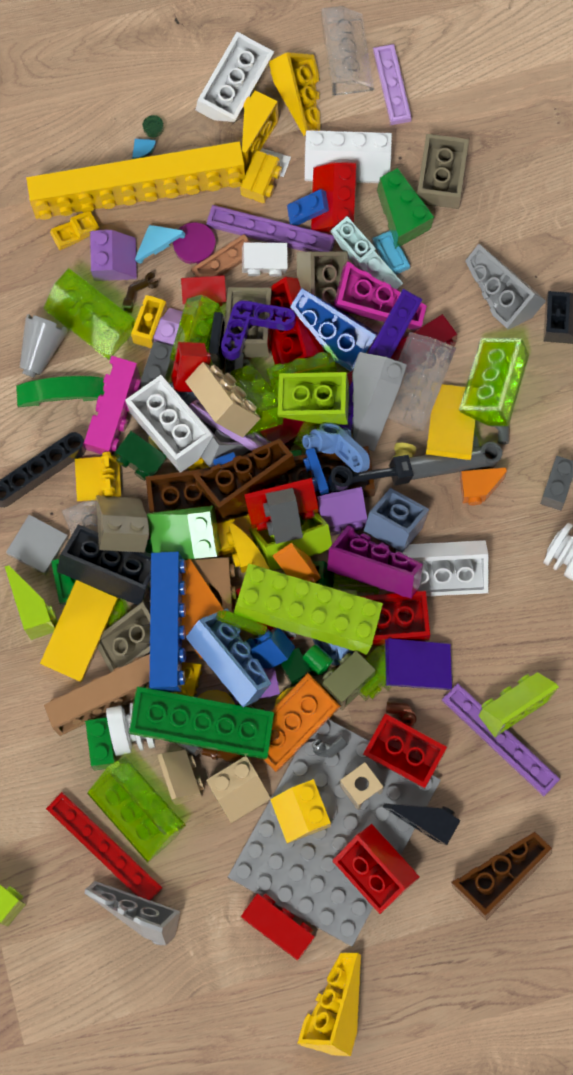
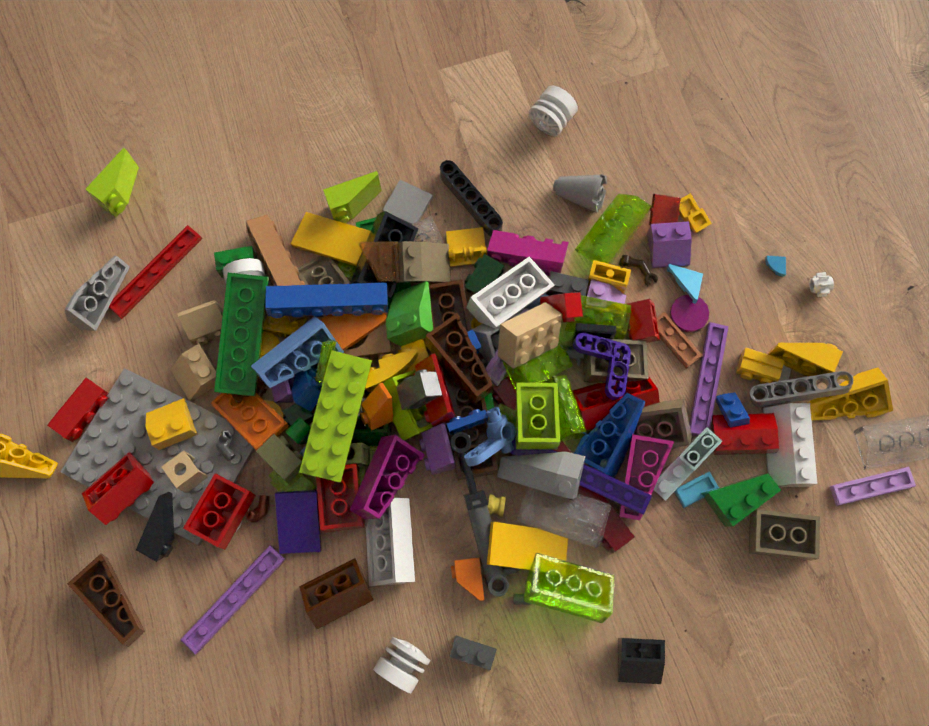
camera: 85 degrees right, 0 degrees up
(59, 389) = (543, 209): green slope -> none
(73, 256) = (664, 209): none -> clear red piece
(120, 559) = (382, 259): none -> clear orange wing
(136, 180) = (742, 258): yellow brick -> none
(136, 809) = (183, 292): clear neon green slope -> none
(153, 126) = (800, 272): clear green tile -> none
(170, 106) = (821, 284): none -> white gear
(233, 79) = (856, 336): white slope -> none
(264, 258) = (678, 372): white brick -> none
(287, 127) = (809, 383): none -> light grey beam
(396, 520) = (429, 497): sand blue brick -> none
(495, 625) = (335, 593): none -> reddish brown slope
(507, 294) = (665, 599): light grey wedge -> none
(517, 703) = (259, 612): lime slope -> none

